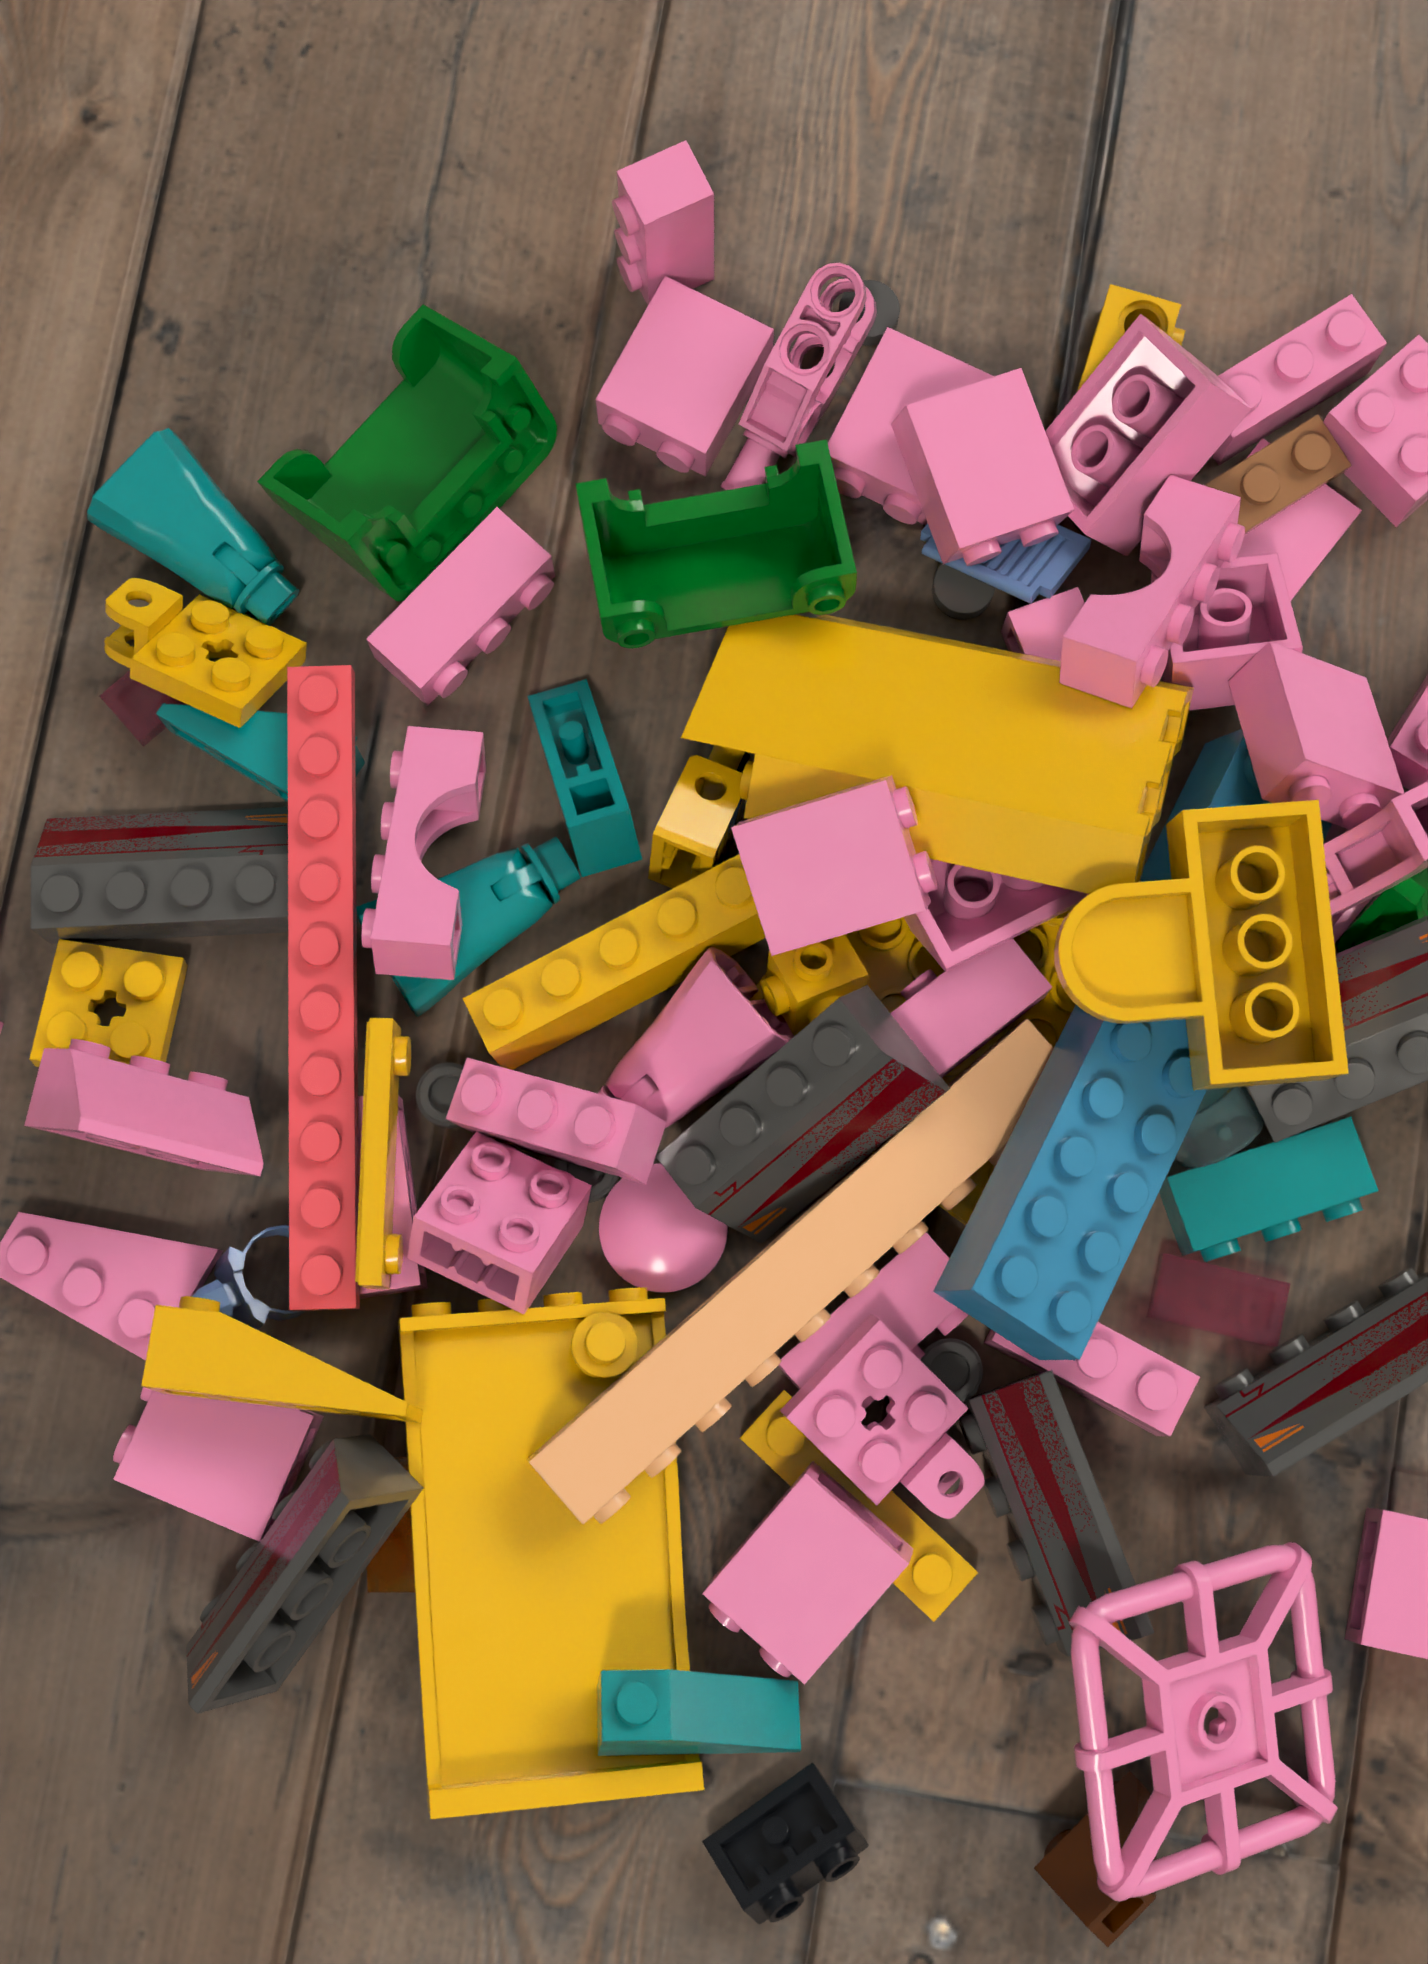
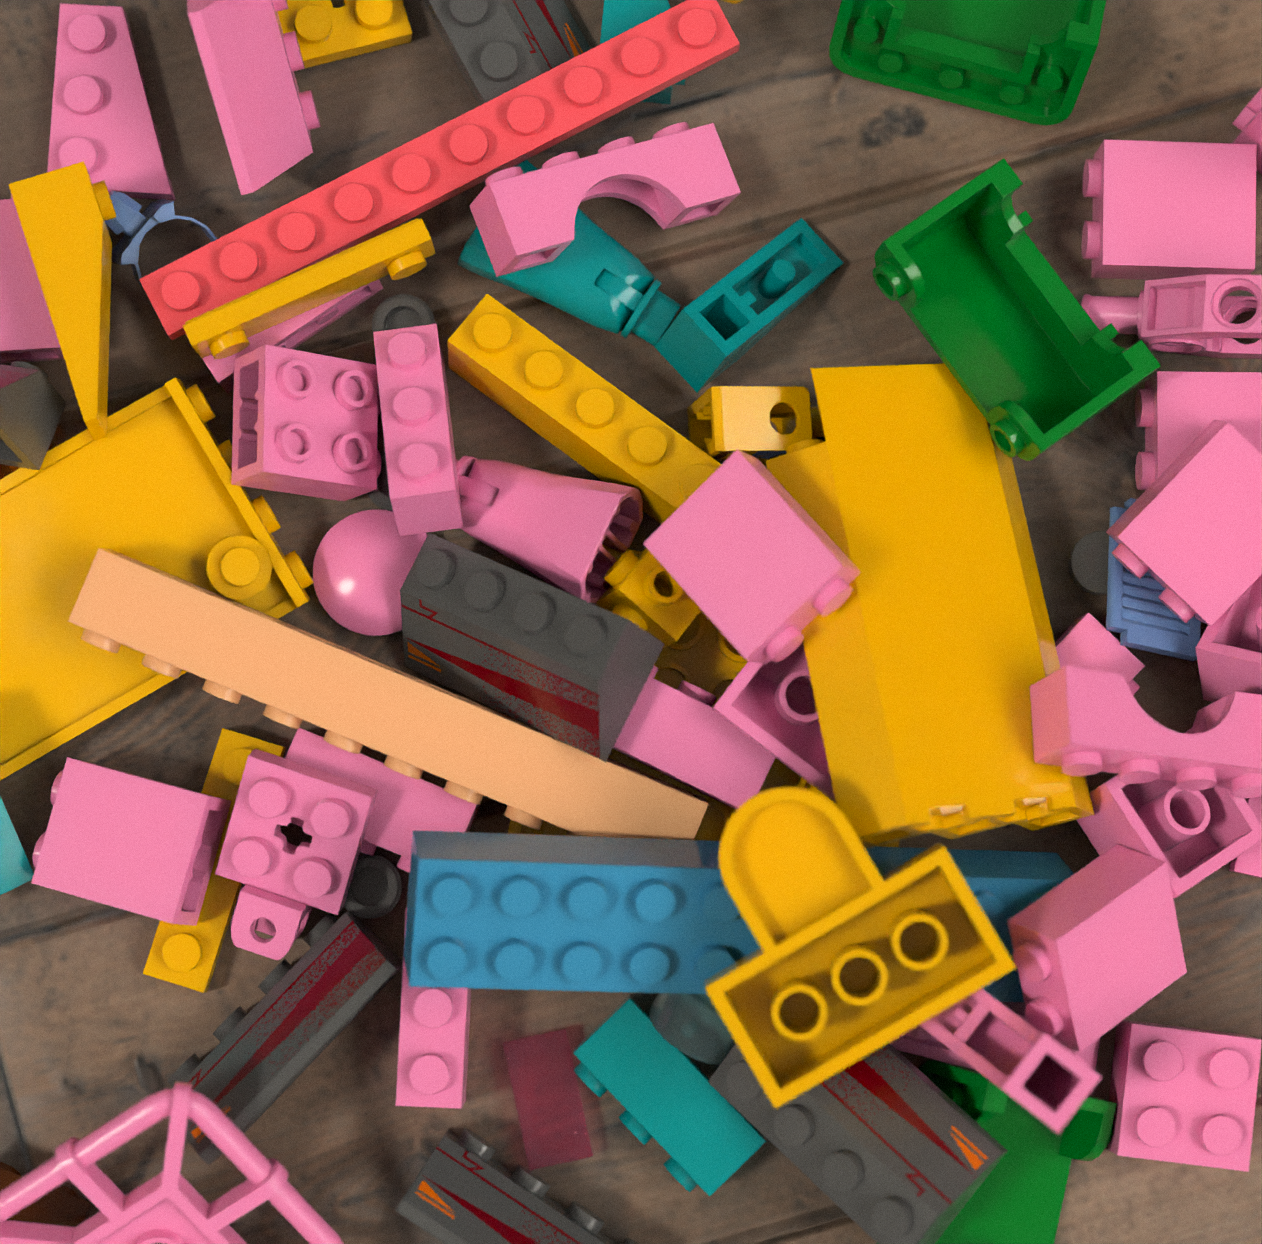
camera: 60 degrees right, 5 degrees up
(463, 608) = (851, 119): bright pink brick -> none

